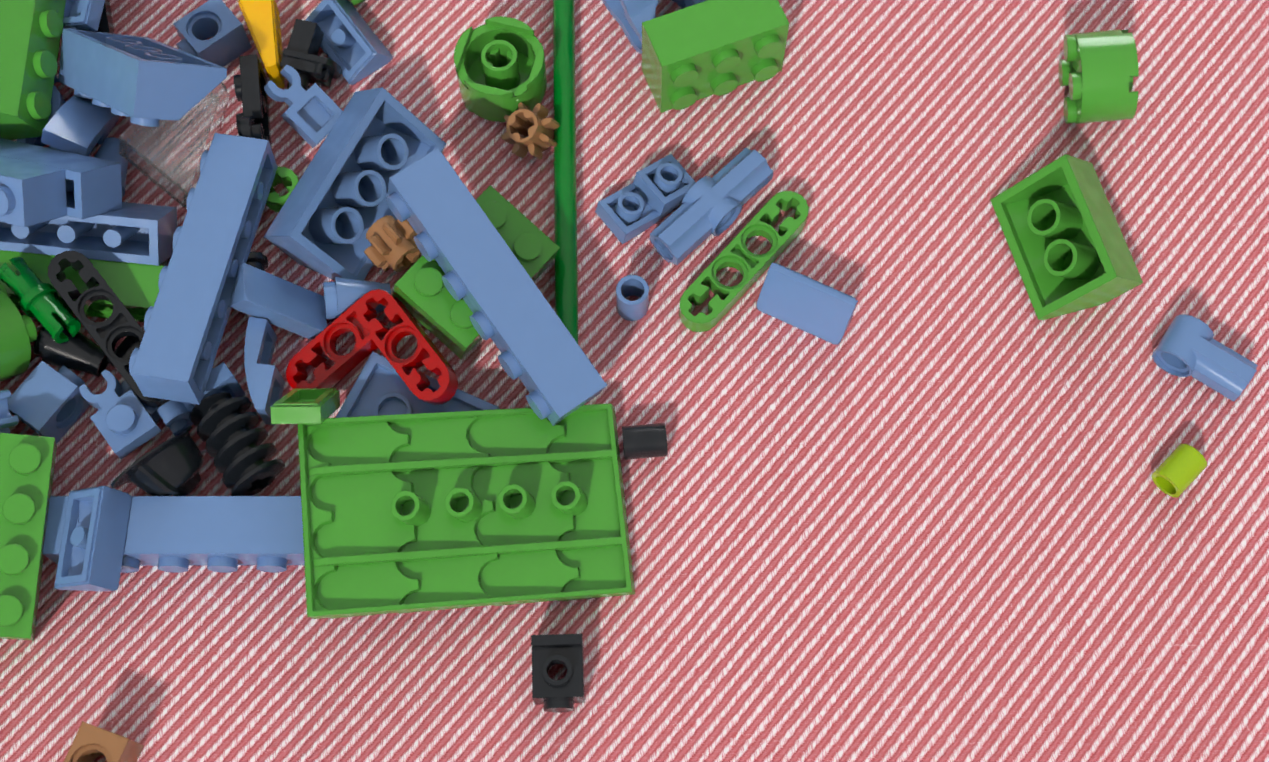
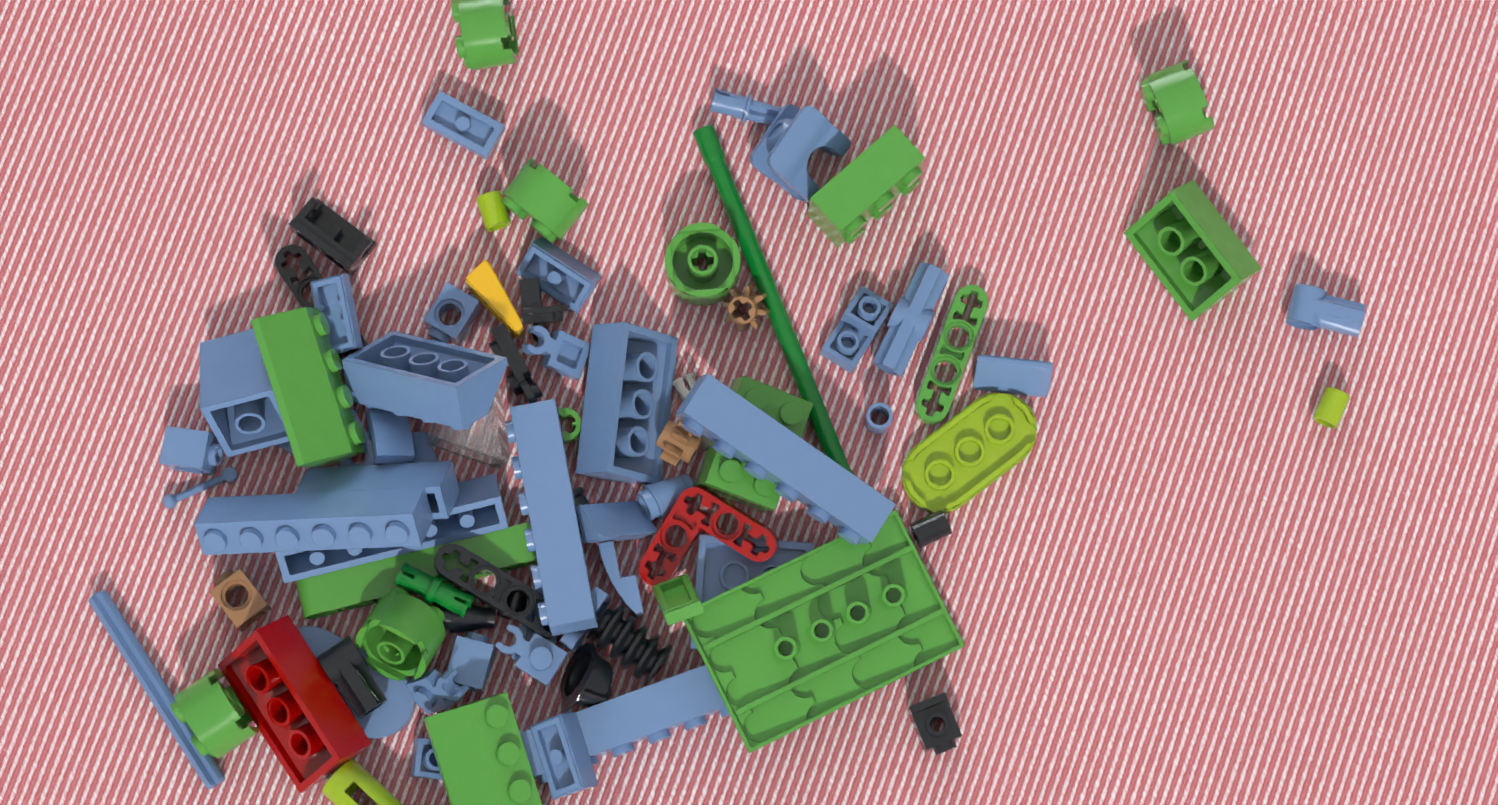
camera: 25 degrees left, 10 degrees up
(723, 374) = (969, 452): none -> lime tile

